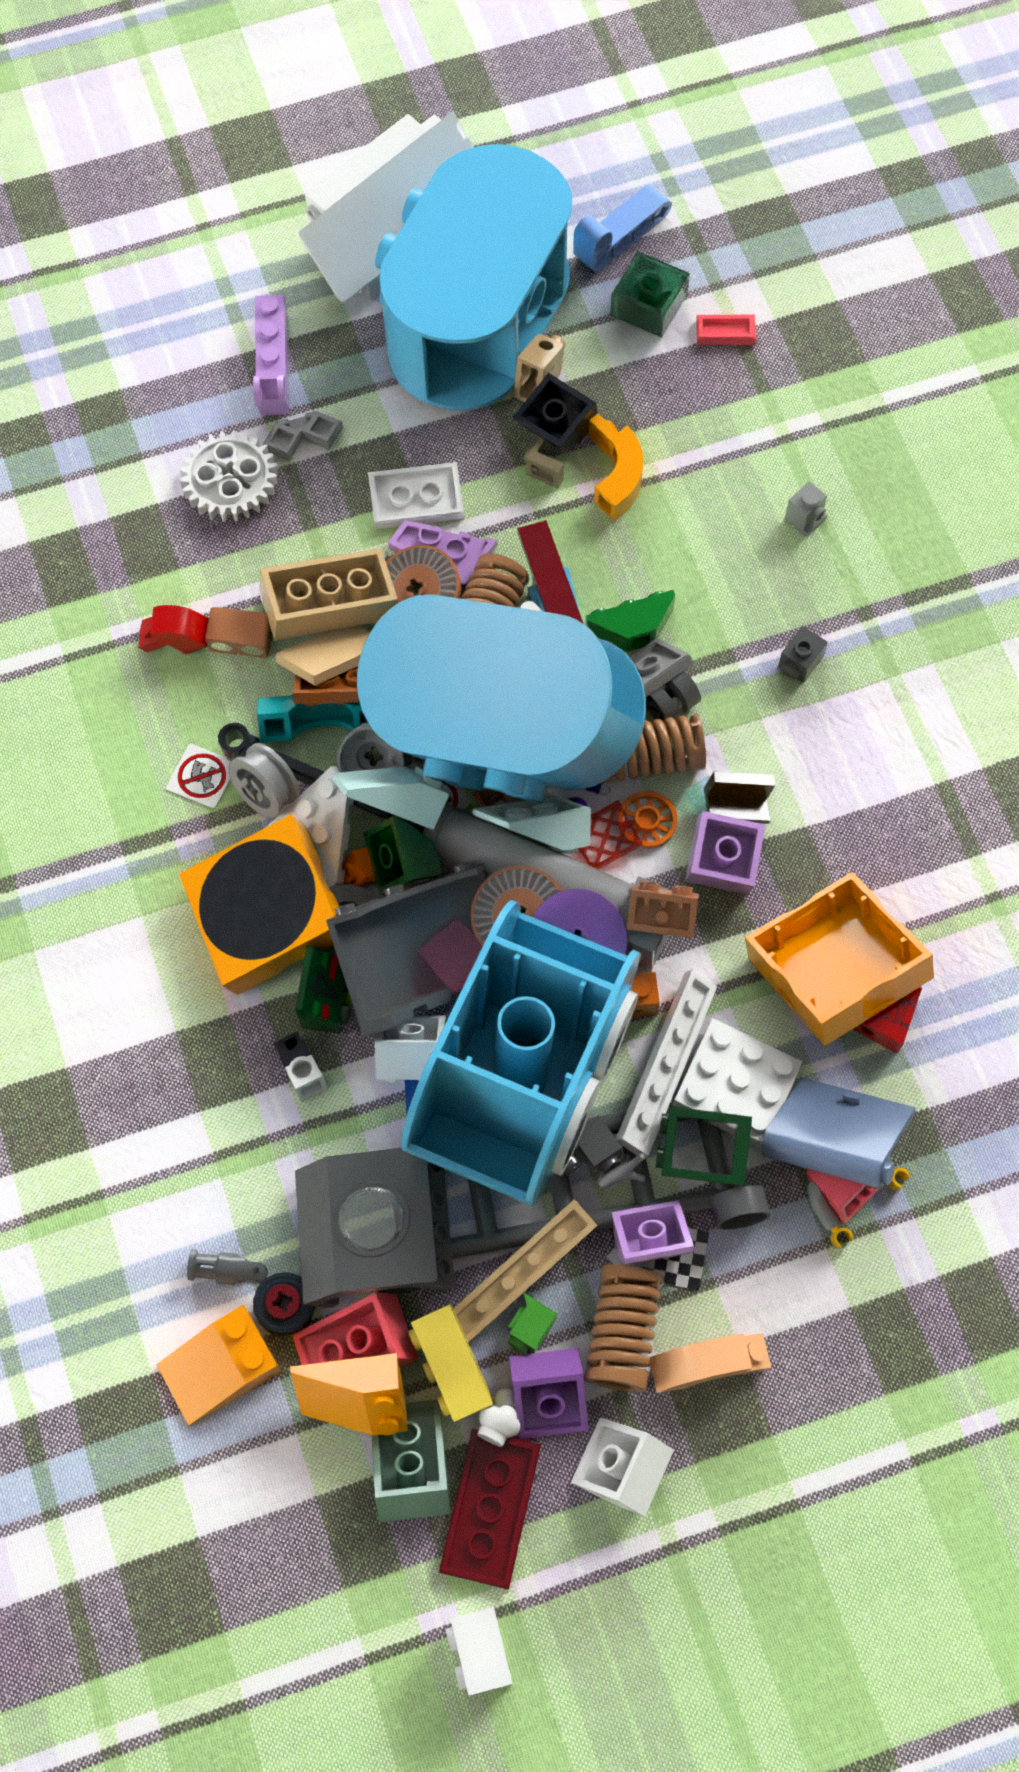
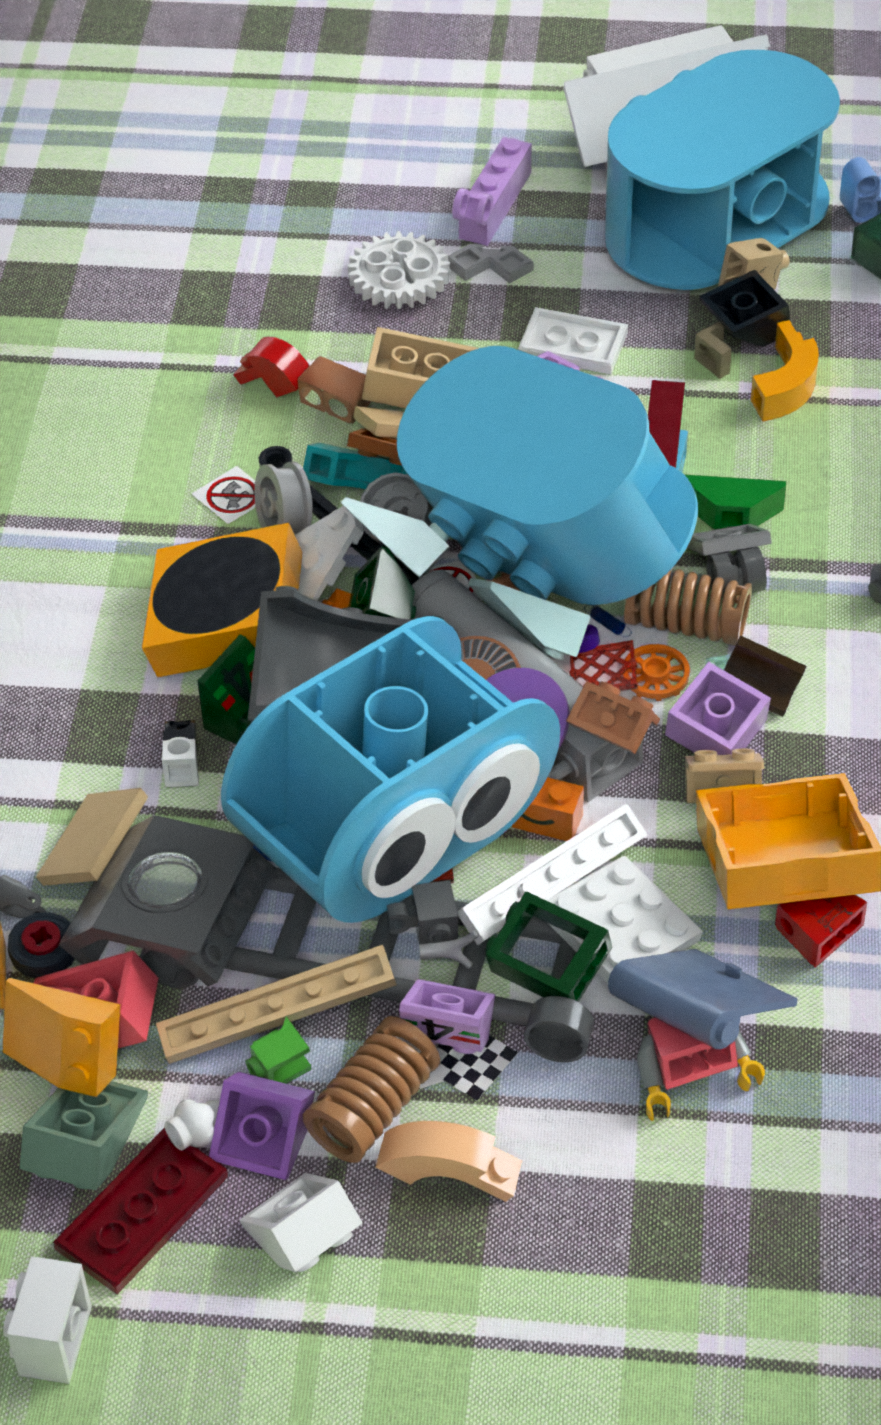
camera: 25 degrees right, 20 degrees down
(272, 1185) = (92, 837): none -> tan tile
(450, 1363) = (174, 1046): light yellow brick -> none
(754, 908) = (711, 770): none -> tan bracket

